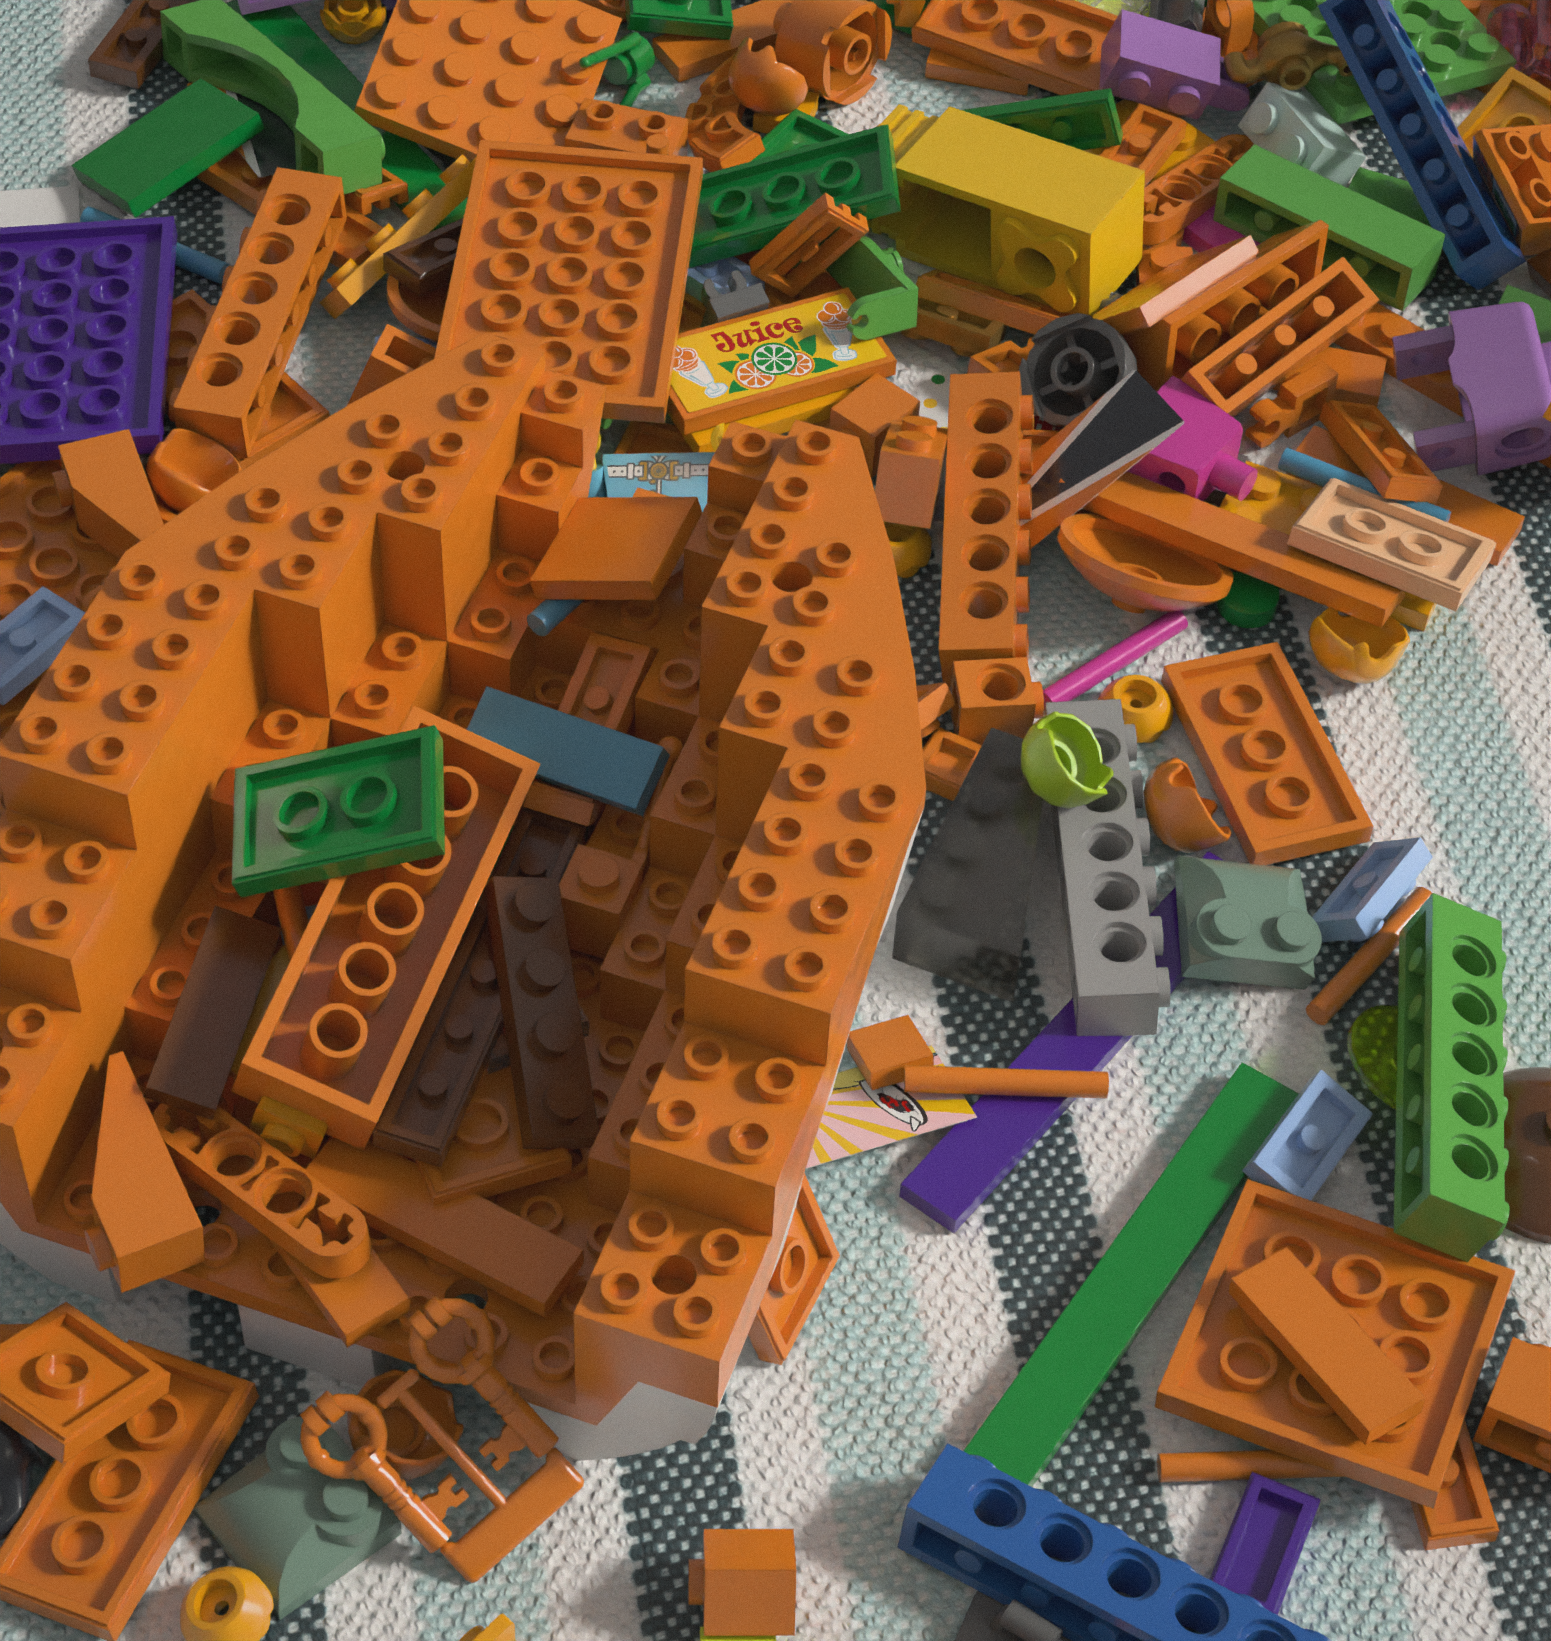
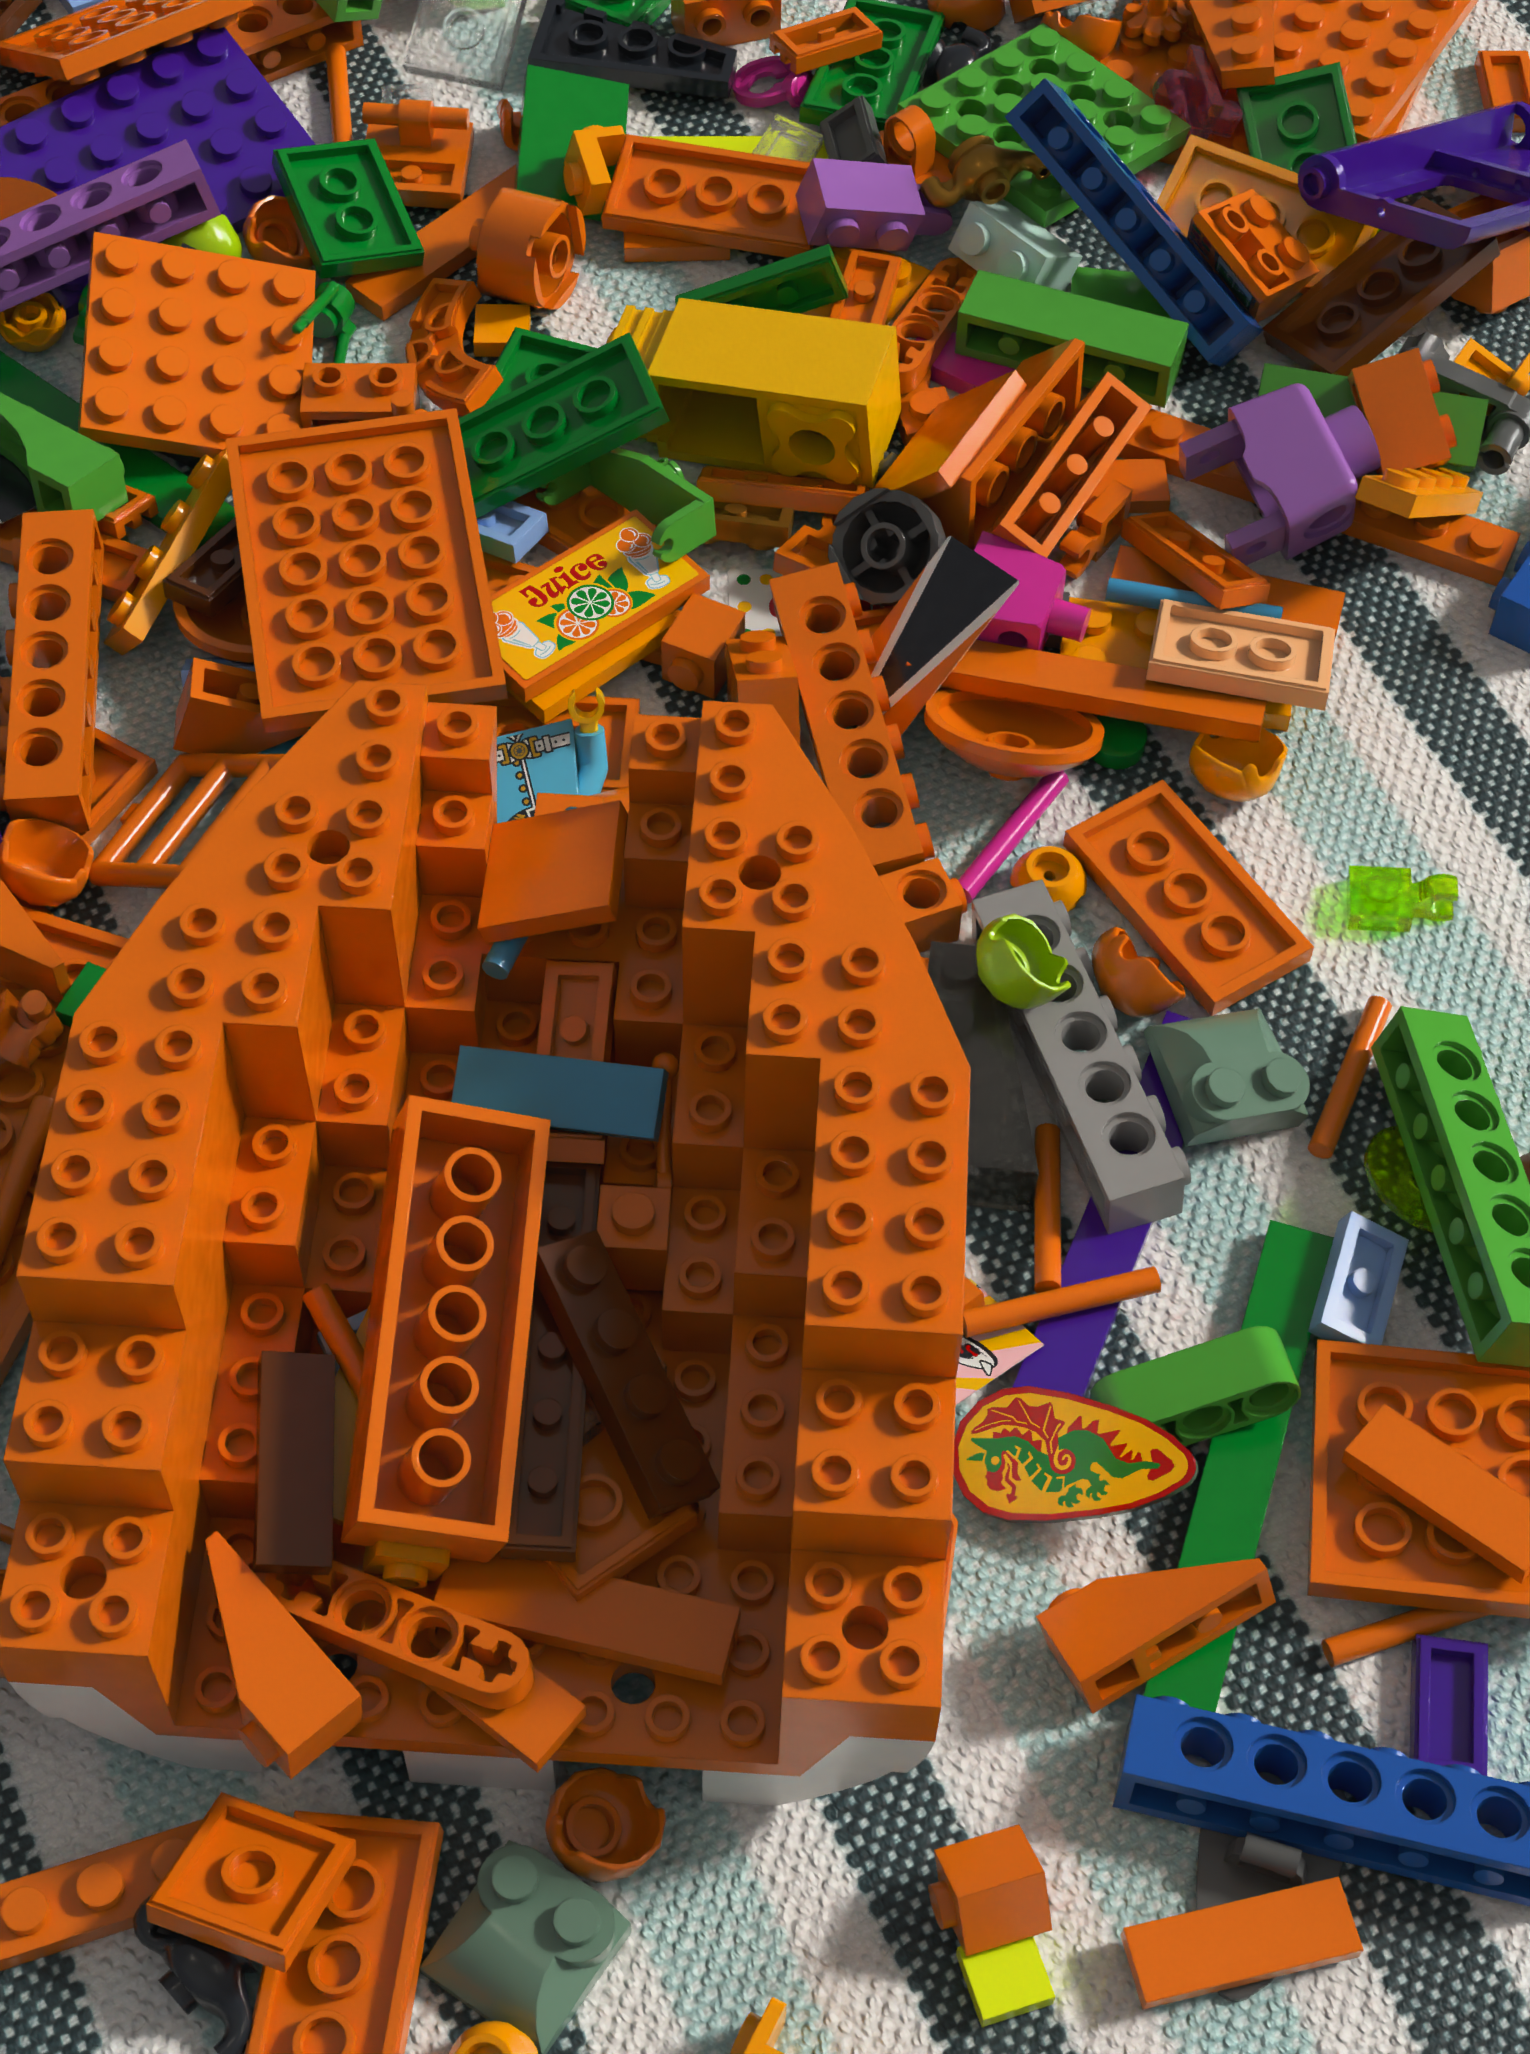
camera: 15 degrees left, 5 degrees up
(338, 811) = (370, 1228): green tile -> none
(513, 1515) = (741, 1888): orange piece -> none
(737, 303) = (528, 556): dark grey tile -> none
(763, 83) = (478, 308): orange hair -> none
(801, 241) = (586, 475): orange tile -> none
(957, 1219) = (1064, 1458): none -> shield
(984, 1384) = (1143, 1623): none -> orange slope
(1026, 997) = (1047, 1209): none -> orange bar
(1106, 1195) = (1207, 1385): none -> bright green beam
(1371, 890) = (1332, 1010): light blue plate -> none
(1469, 802) = (1389, 900): none -> clear neon green plate

